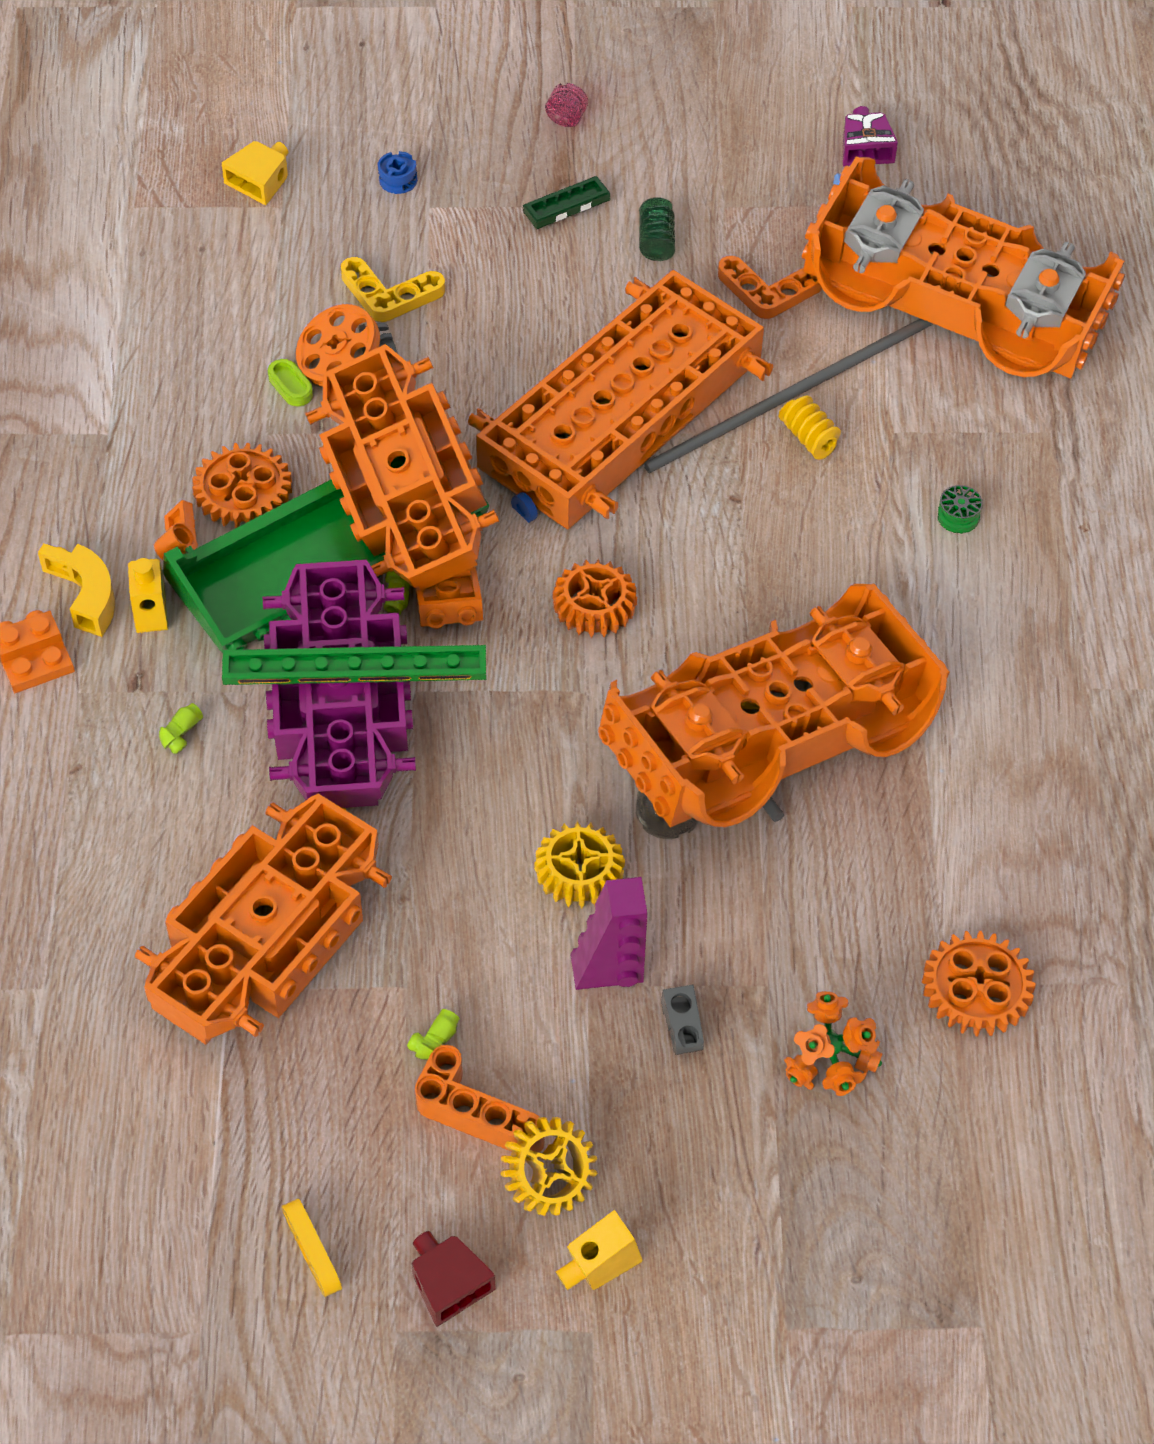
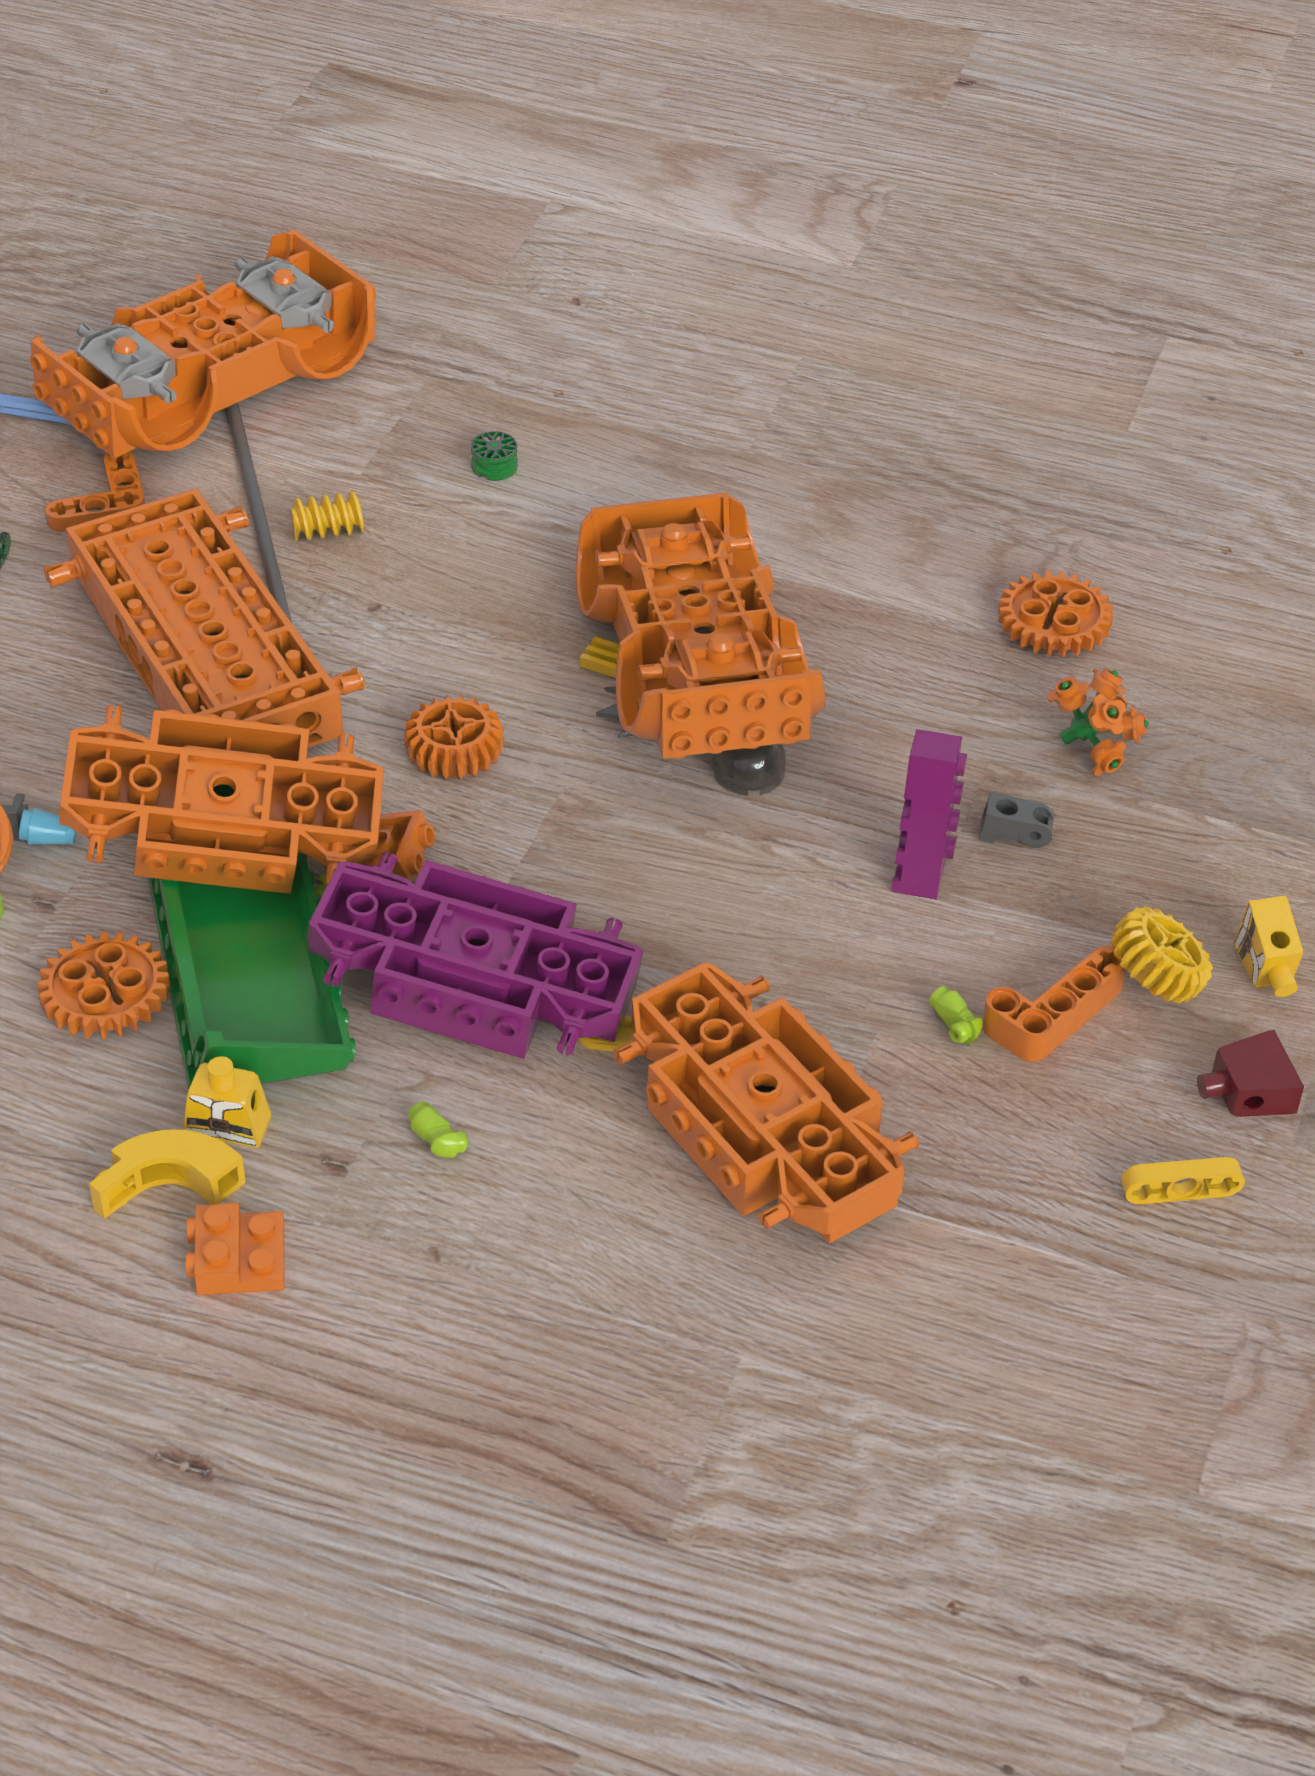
camera: 70 degrees left, 10 degrees down
(179, 530) = (144, 1059): orange plate -> none
(354, 664) = (481, 915): green plate -> none
(558, 865) = (794, 844): yellow gear -> none

